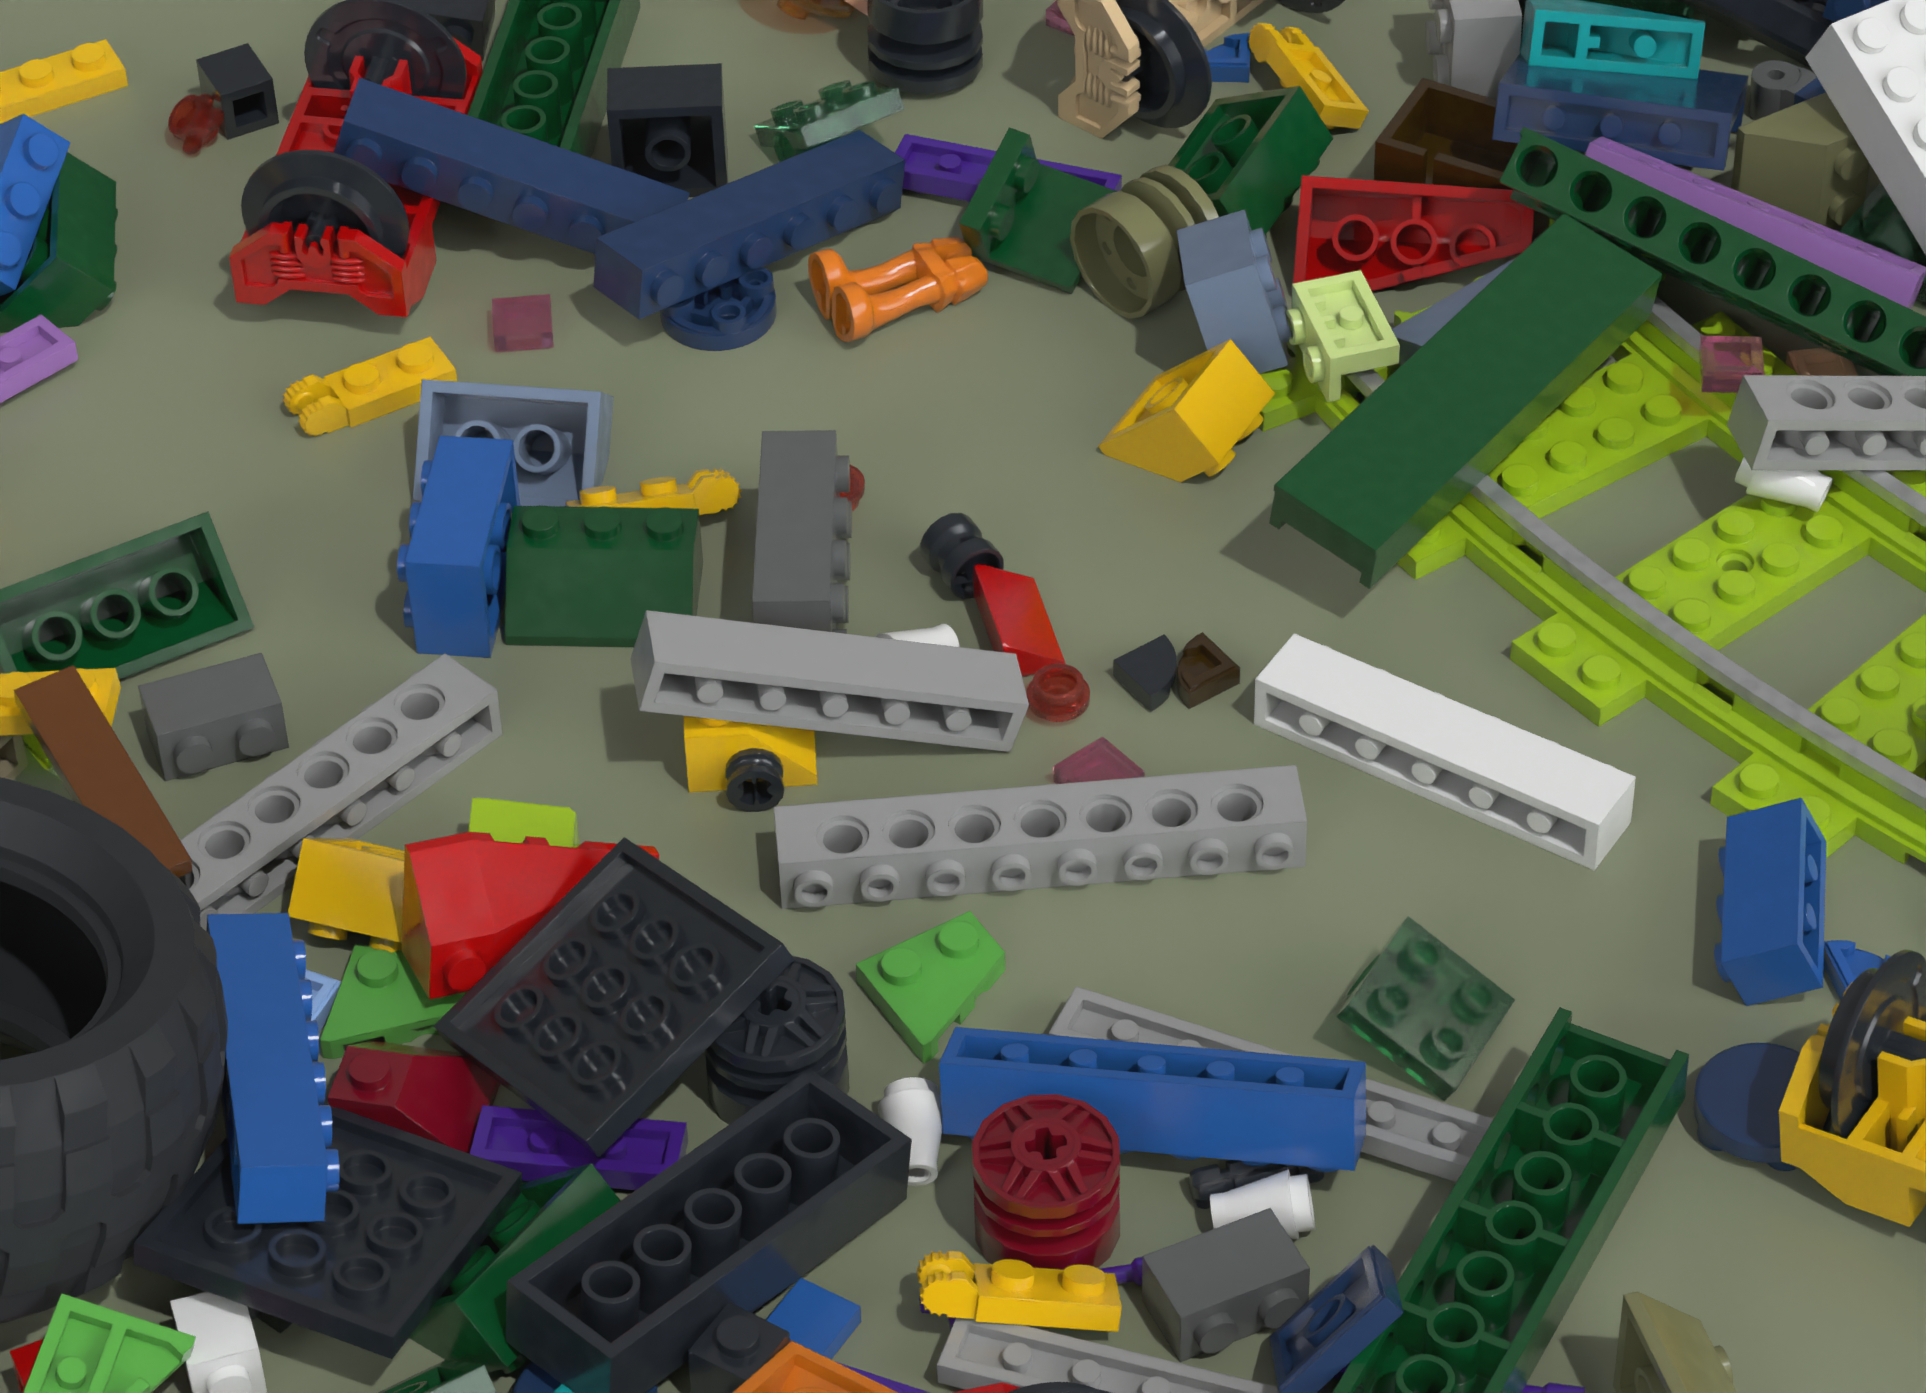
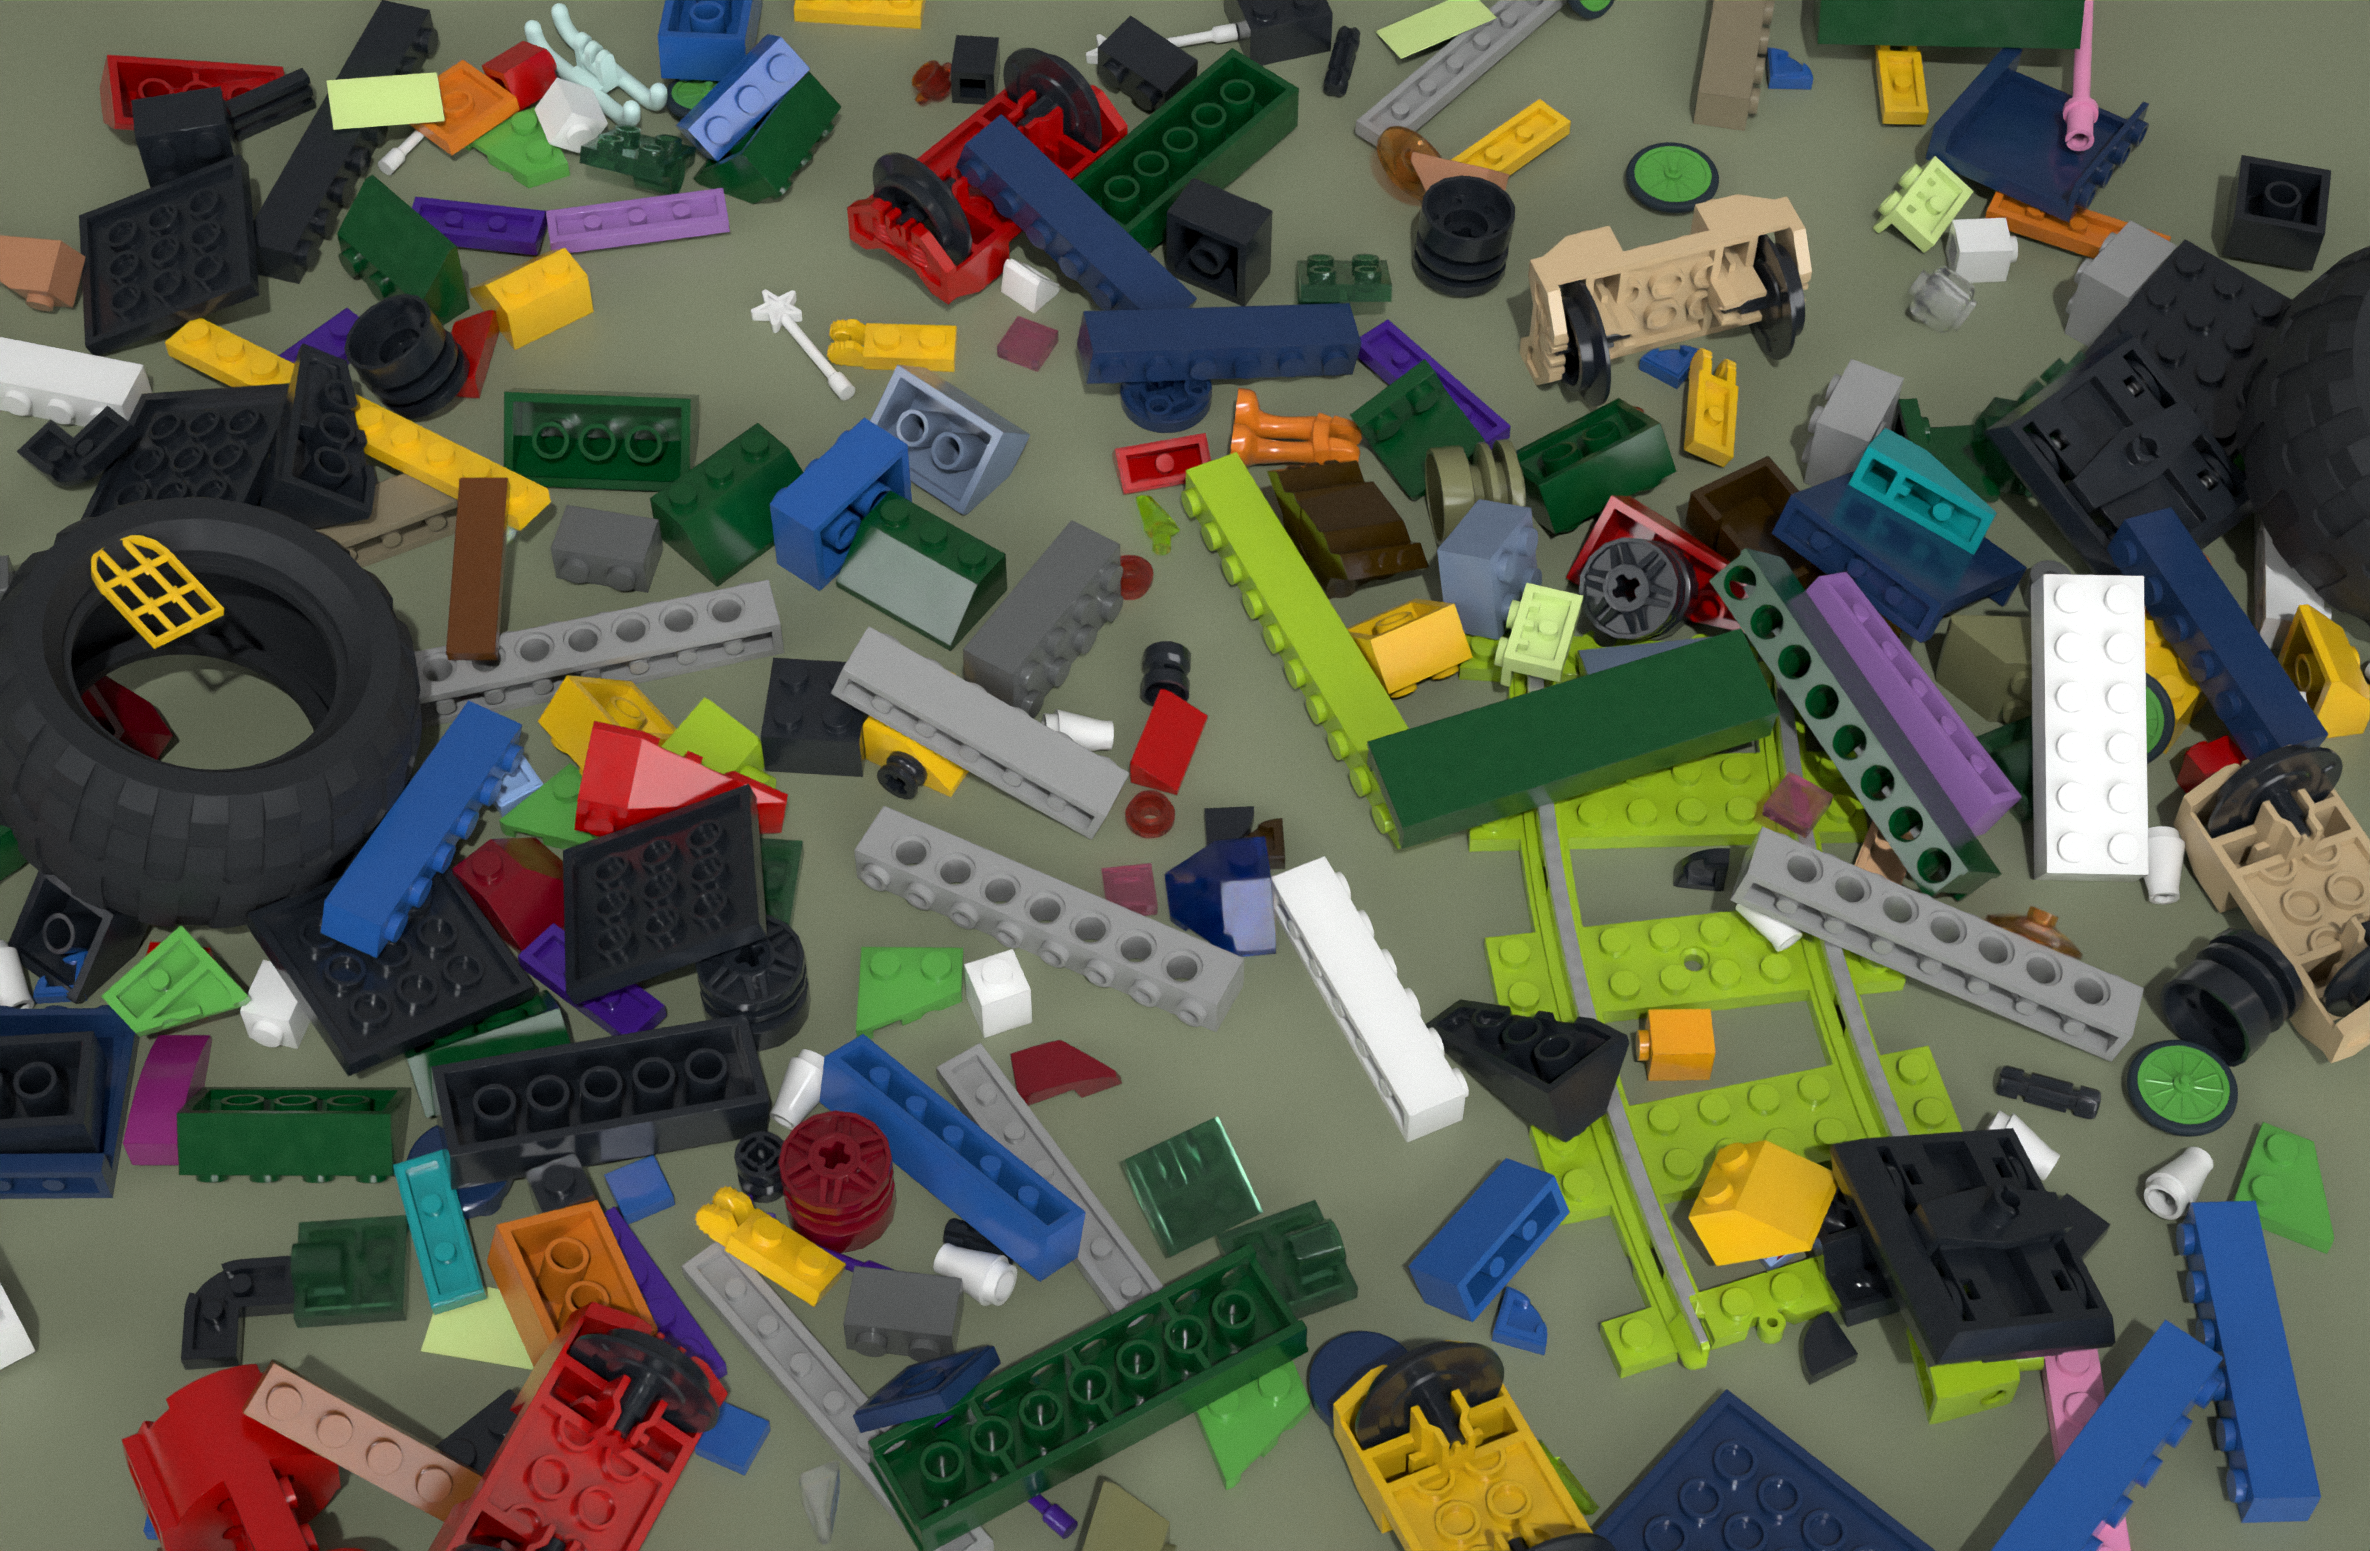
camera: 30 degrees right, 10 degrees up
(206, 412) = (783, 312): none -> white piece
(327, 609) = (721, 507): none -> dark green slope
(473, 268) = (1027, 285): none -> white slope
(612, 765) = (807, 725): none -> black brick
(704, 491) = (999, 528): yellow hinge -> none
(774, 369) = (1159, 462): none -> red slope
(805, 418) = (1157, 524): none -> clear neon green bar
(939, 1218) = (758, 1166): none -> black wheel
(1034, 338) = (1343, 526): none -> dark brown slope
(1053, 930) = (998, 993): none -> white brick
(1078, 454) = (1295, 619): none -> lime brick
(1180, 972) = (1059, 1068): none -> dark red slope
(1209, 719) = (1226, 896): none -> clear blue slope
(1438, 242) = (1664, 596): none -> black wheel
(1602, 999) = (1299, 1255): none -> clear green plate
(1673, 479) = (1703, 870): none -> black tile
(1677, 1202) = (1251, 1420): none -> bright green wing
(1697, 719) = (1540, 1066): none -> black wedge
(1793, 642) = (1677, 1044): none -> light orange brick

